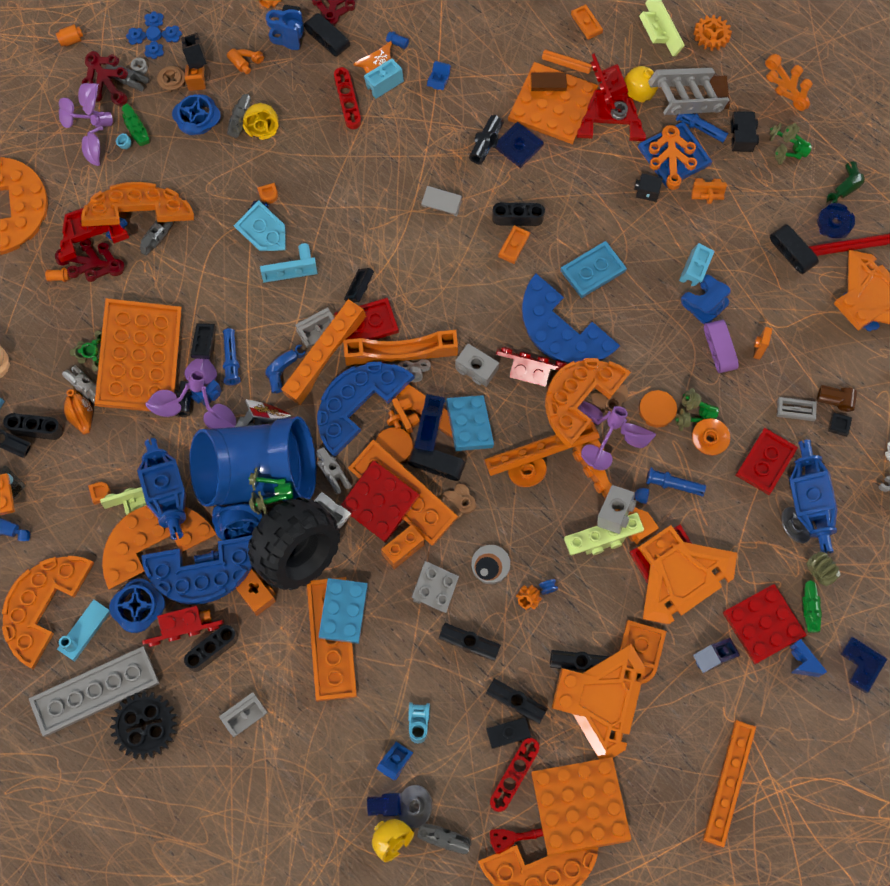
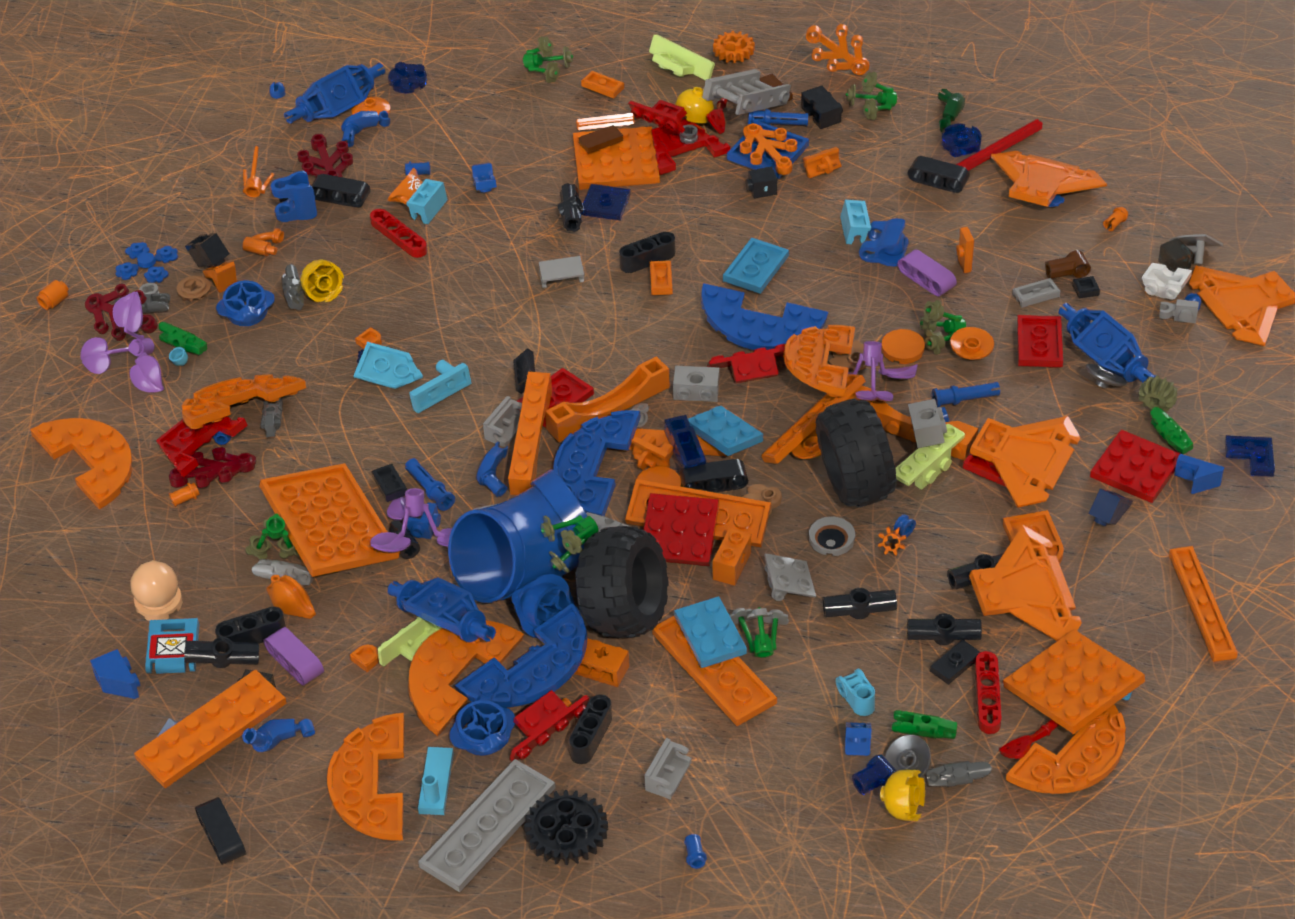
camera: 25 degrees left, 25 degrees down
(49, 466) = (293, 656): none -> medium lavender beam
(219, 797) = (696, 857): none -> blue pin
(376, 639) = (762, 645): none -> plant
(457, 785) = (923, 725): none -> green hinge
(539, 513) = (856, 453): none -> black tyre
(652, 108) = (716, 116): none -> red piece

